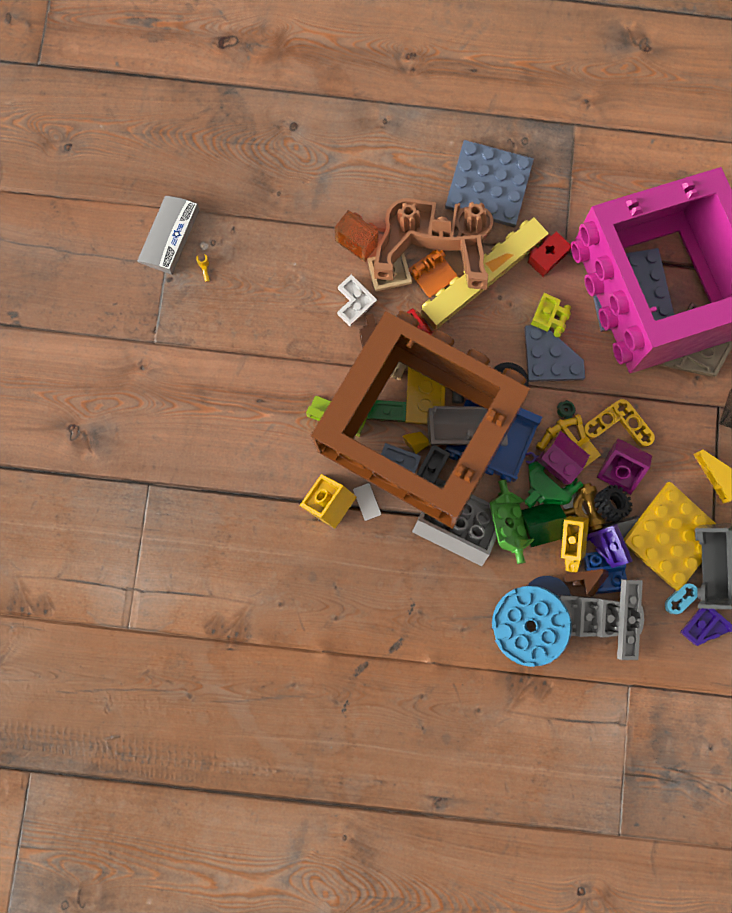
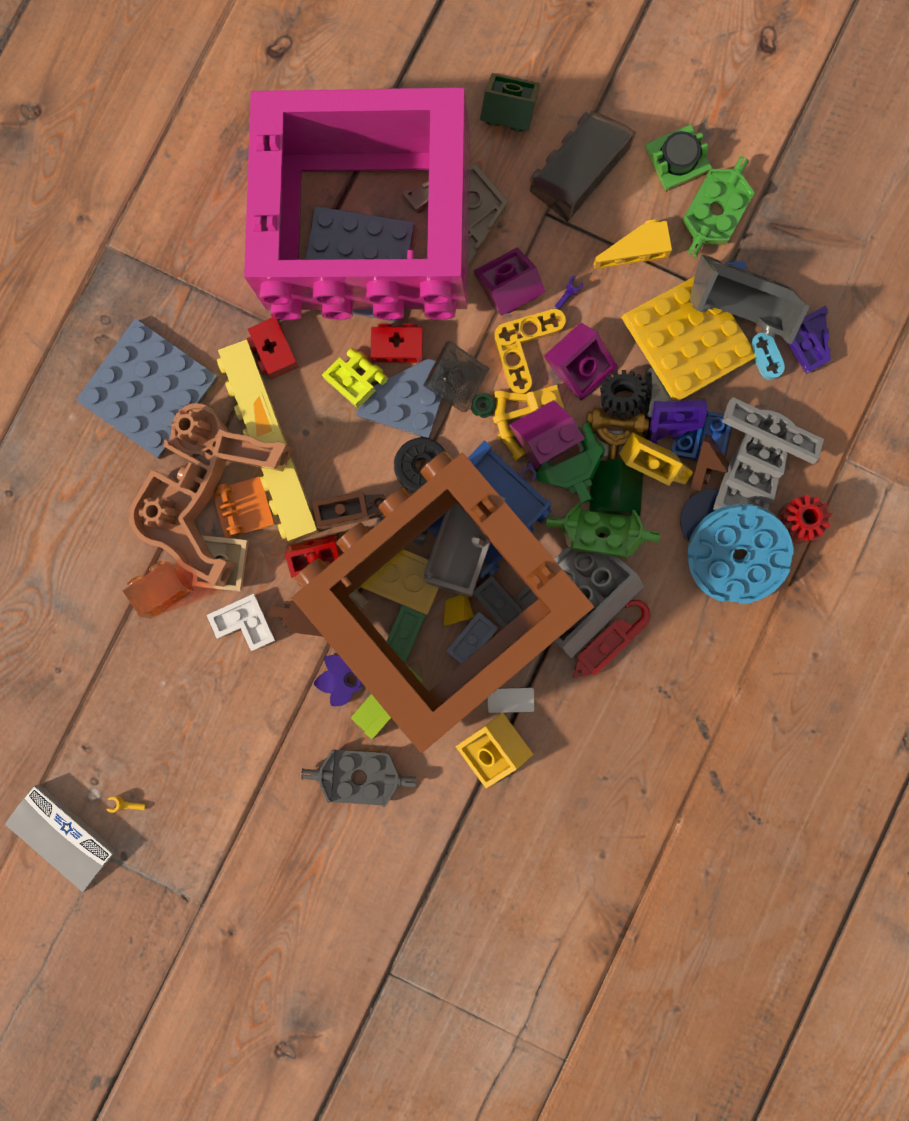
camera: 65 degrees left, 5 degrees up
(273, 399) = (337, 780): none -> dark grey plate
(334, 377) = (336, 681): none -> dark purple plate
(433, 557) = (611, 642): none -> red plate
(456, 331) = (346, 509): none -> reddish brown hinge
(564, 665) = (816, 518): none -> red gear
(579, 382) = (456, 376): none -> clear smoke plate
(583, 344) = (383, 340): none -> red brick
(660, 397) = (510, 281): none -> magenta slope
(671, 443) = (571, 290): none -> dark purple hand

